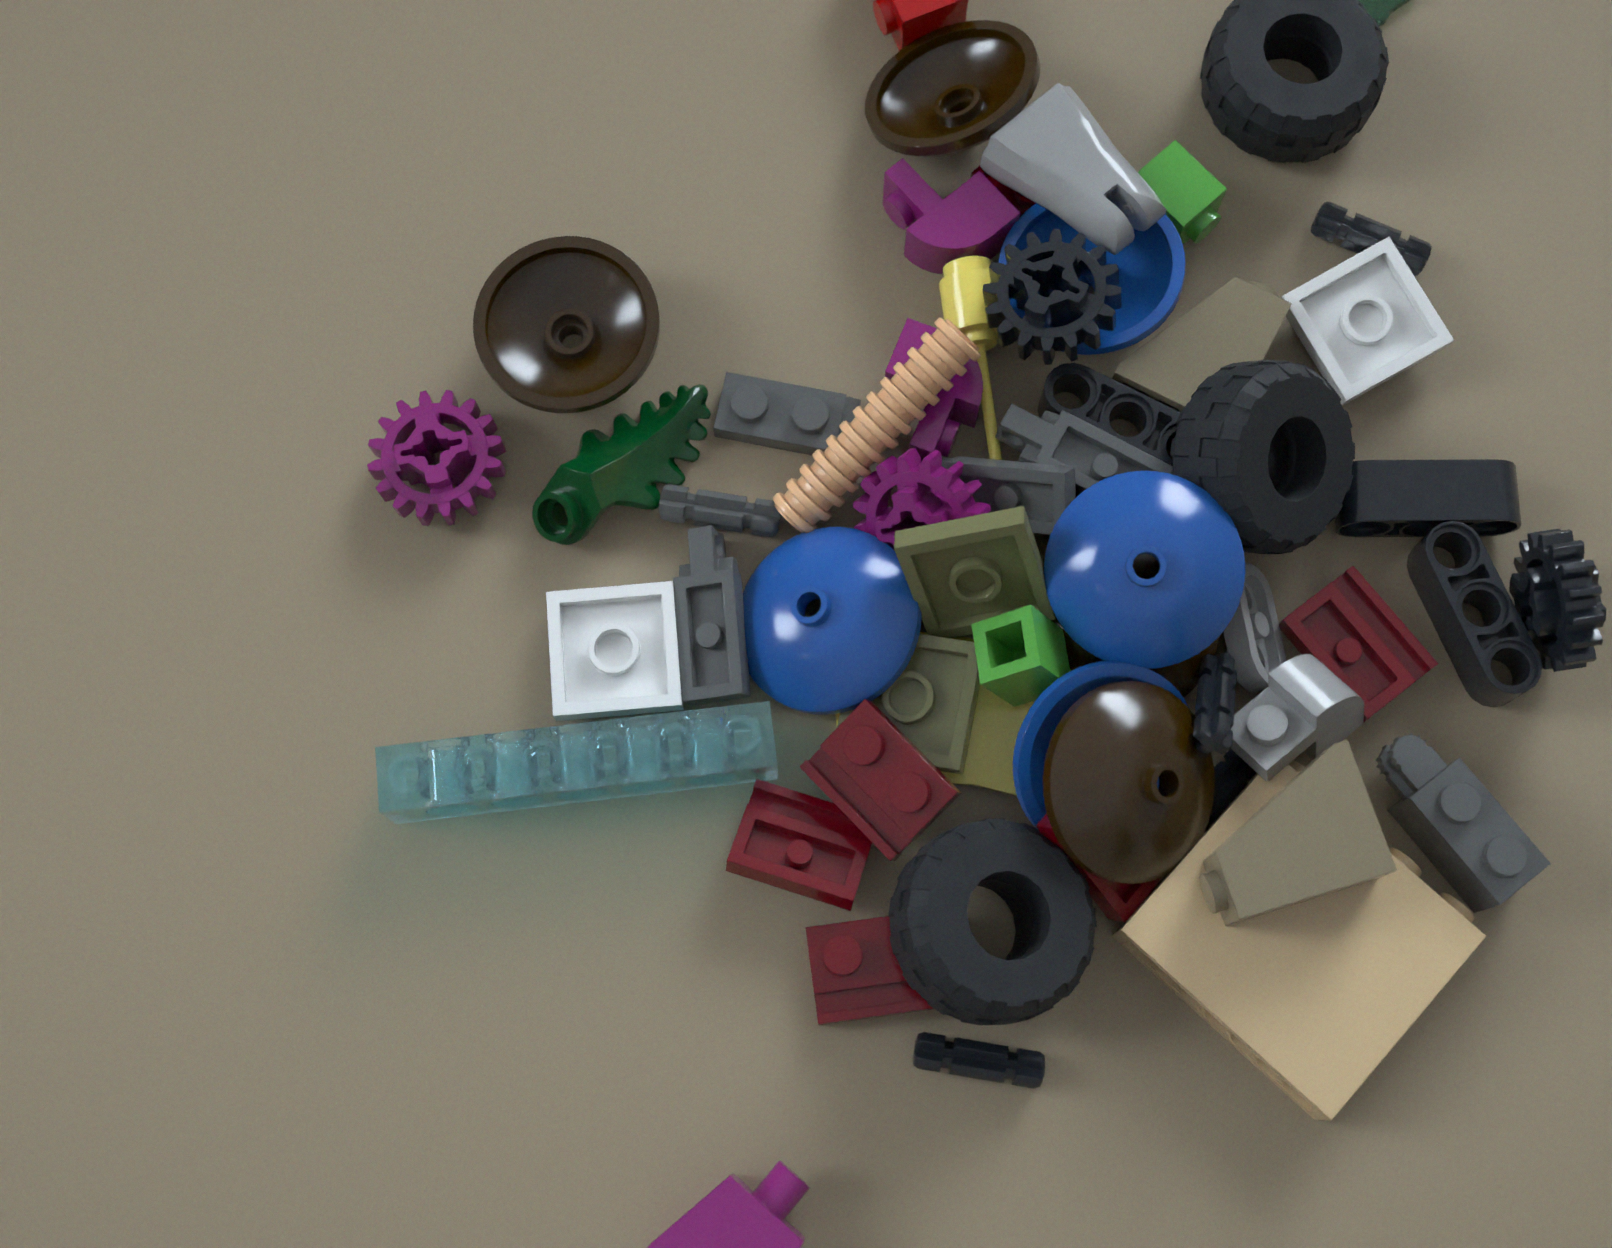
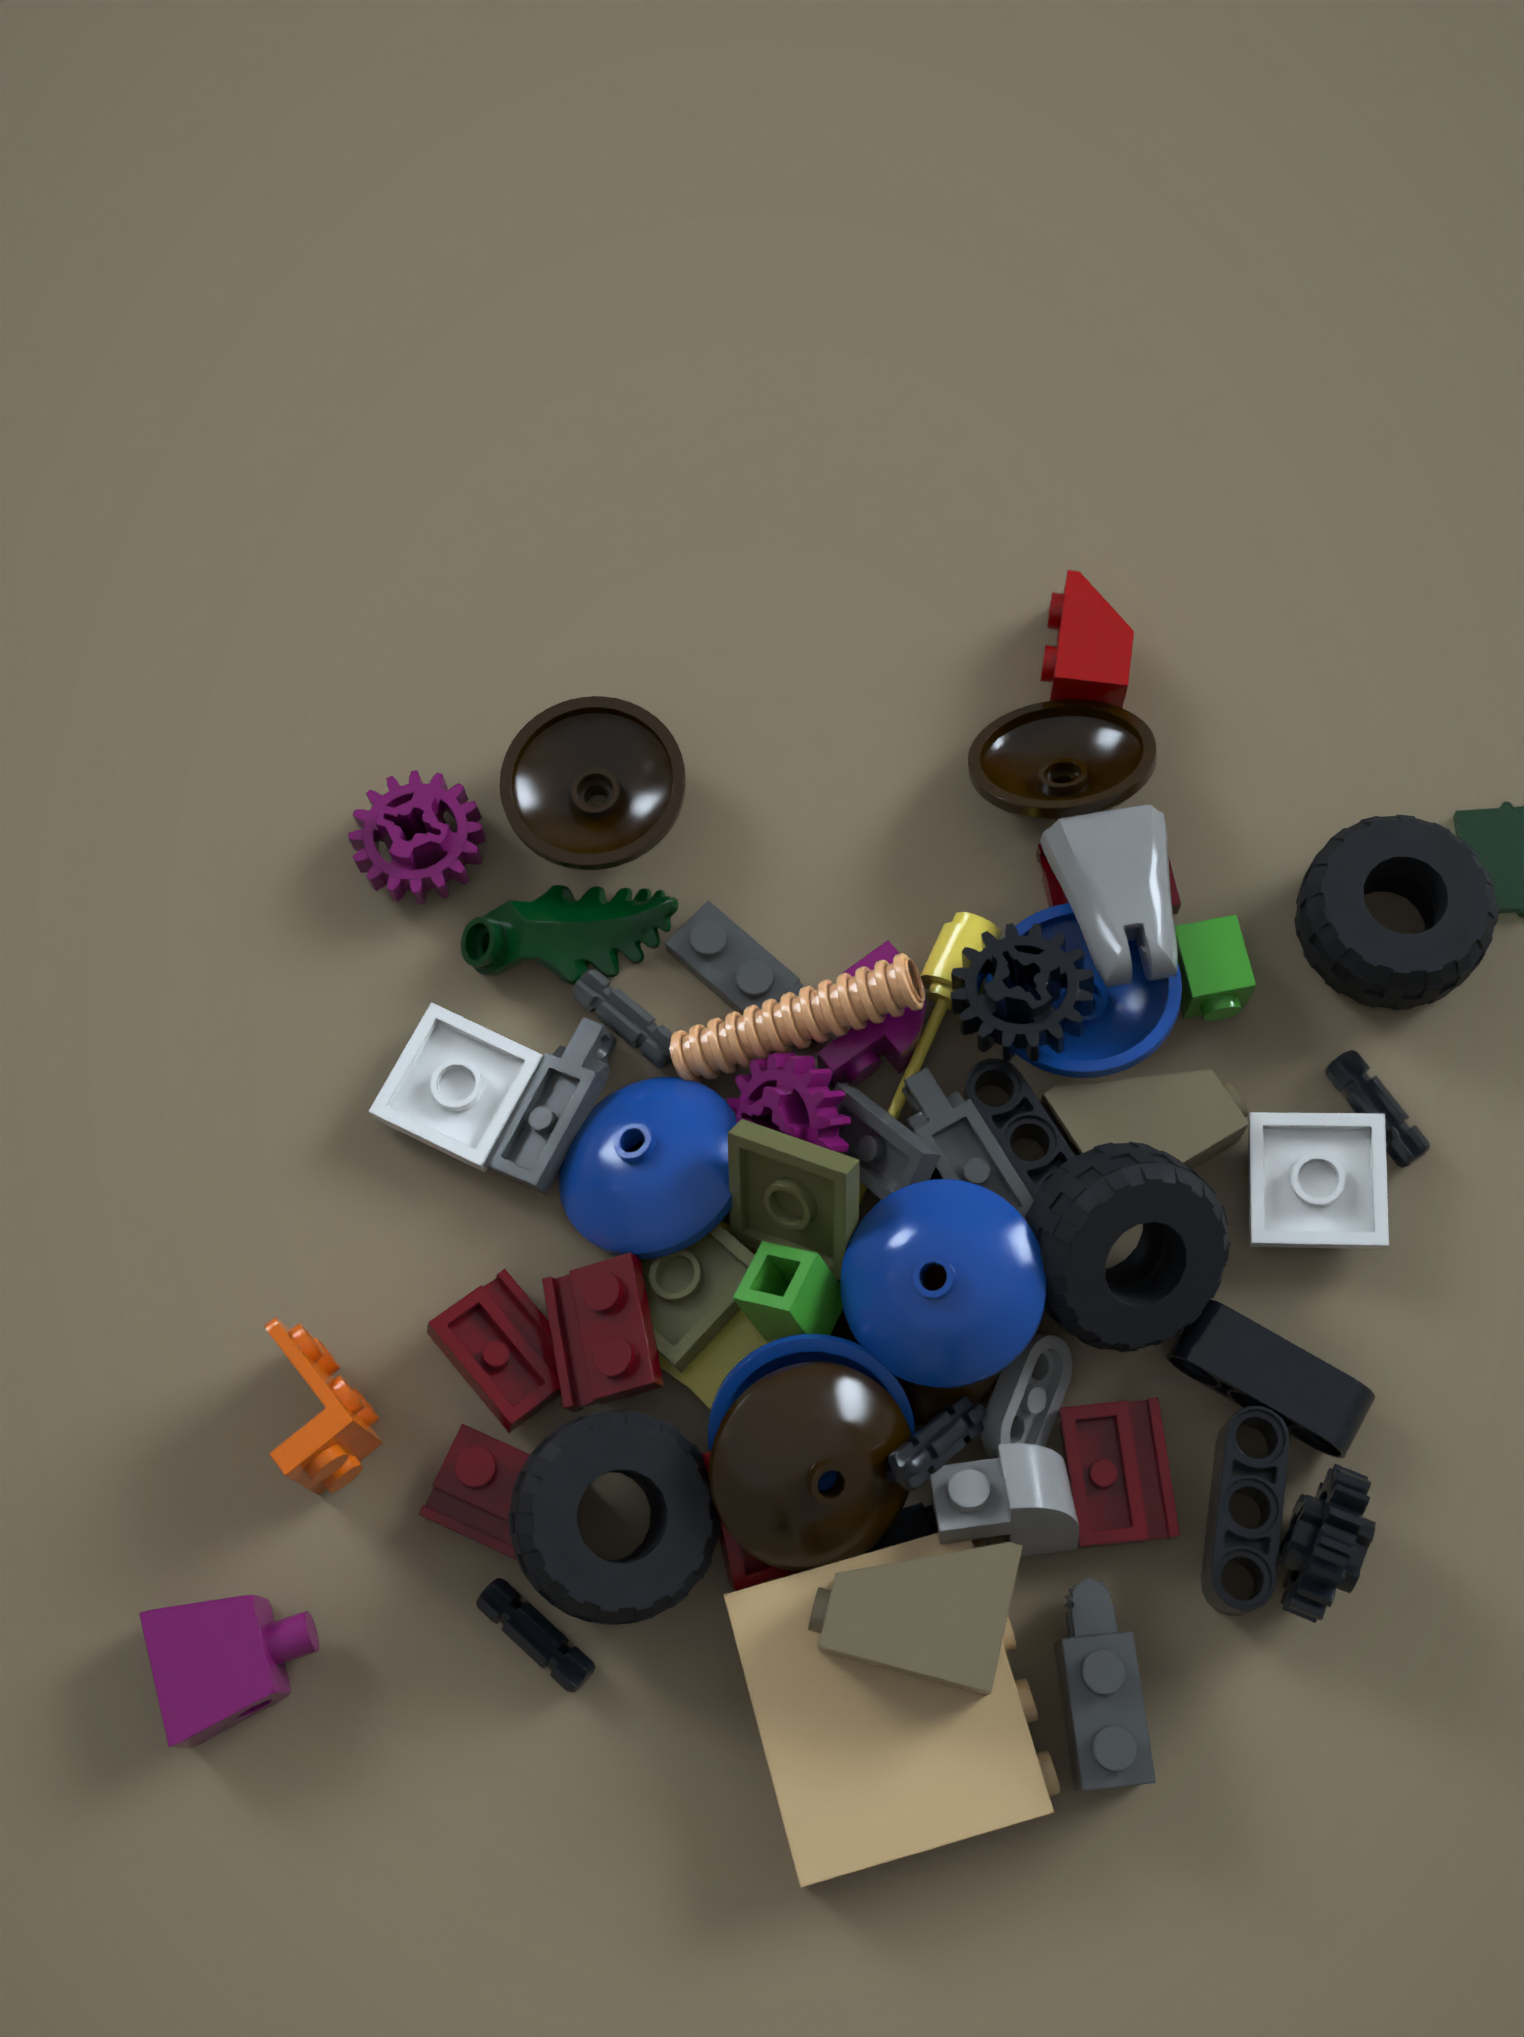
camera: 35 degrees right, 5 degrees down
(576, 763) = (365, 1165): clear light blue brick -> none
(716, 1019) = (335, 1441): none -> orange bracket
(941, 230) = (992, 885): magenta brick -> none

